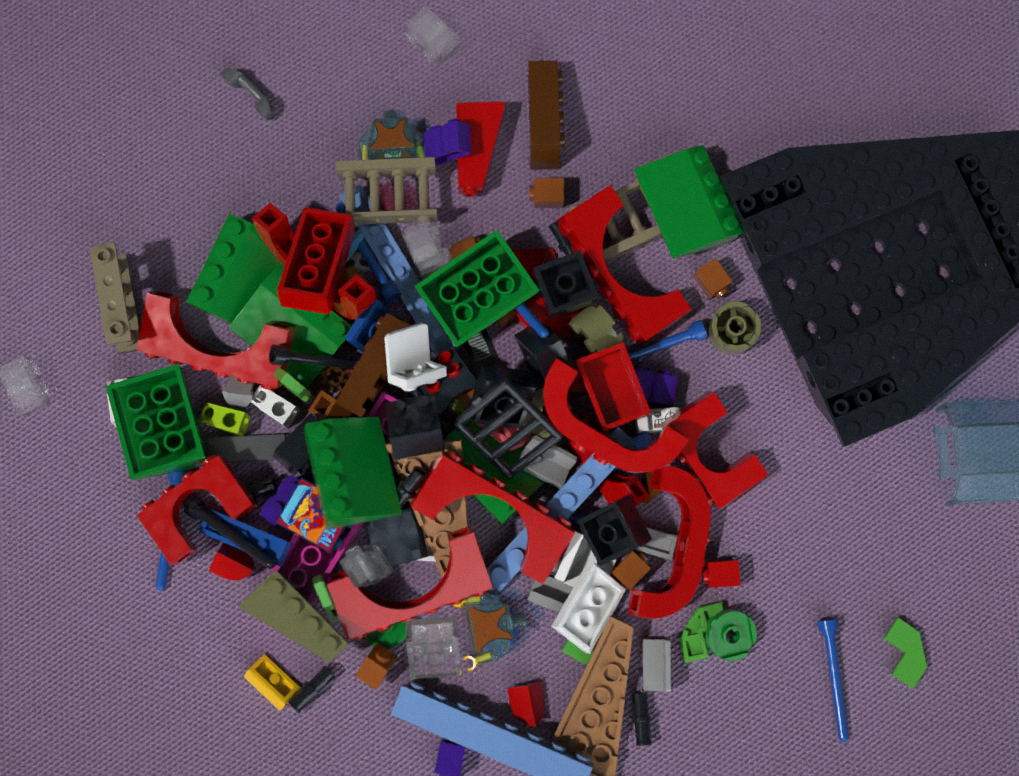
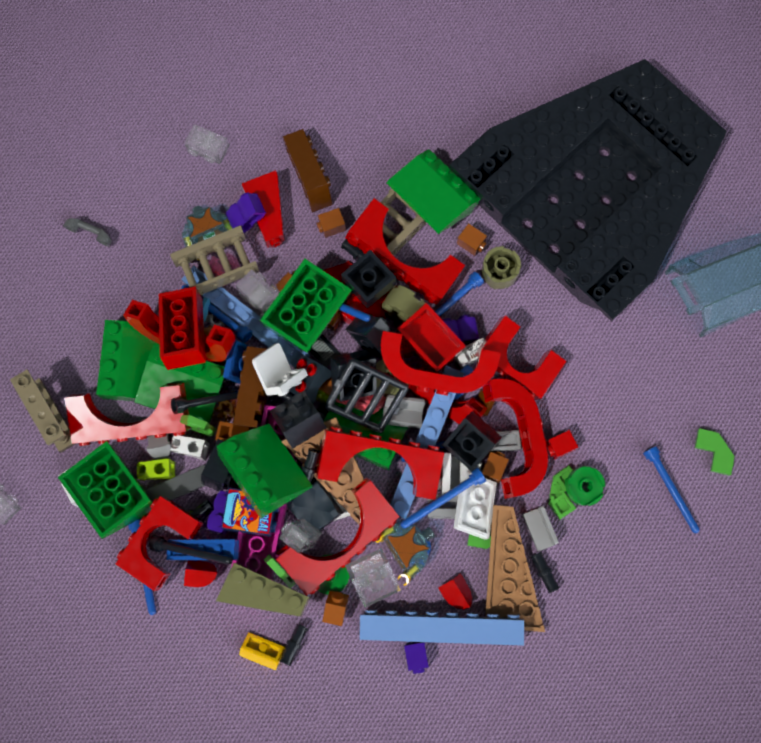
camera: 15 degrees left, 5 degrees down
(600, 577) = (475, 478): none -> blue piece

